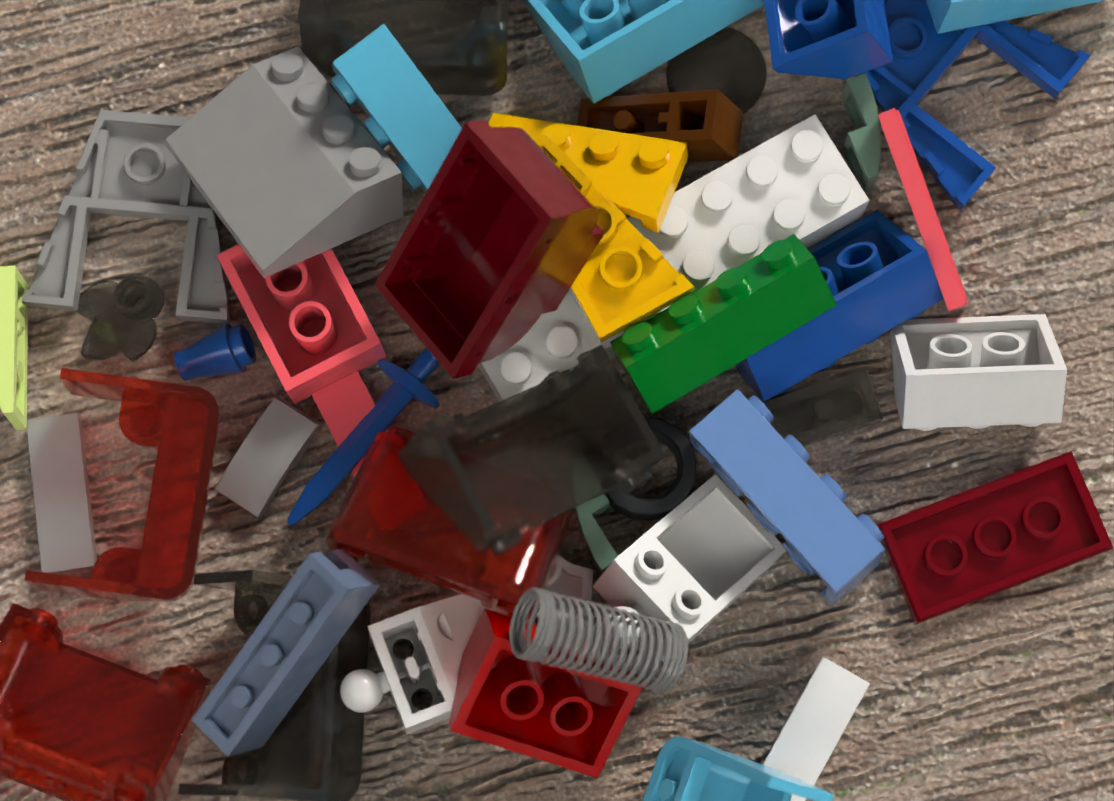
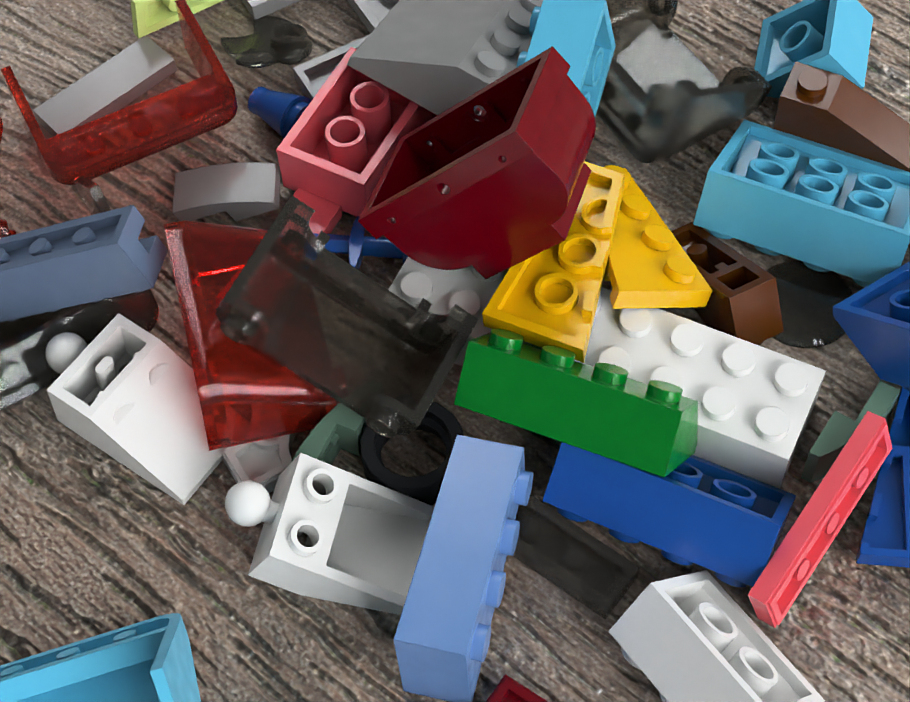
camera: 55 degrees right, 20 degrees down
(534, 706) = (147, 479): red slope -> none
(548, 633) = (229, 537): light grey piece -> none

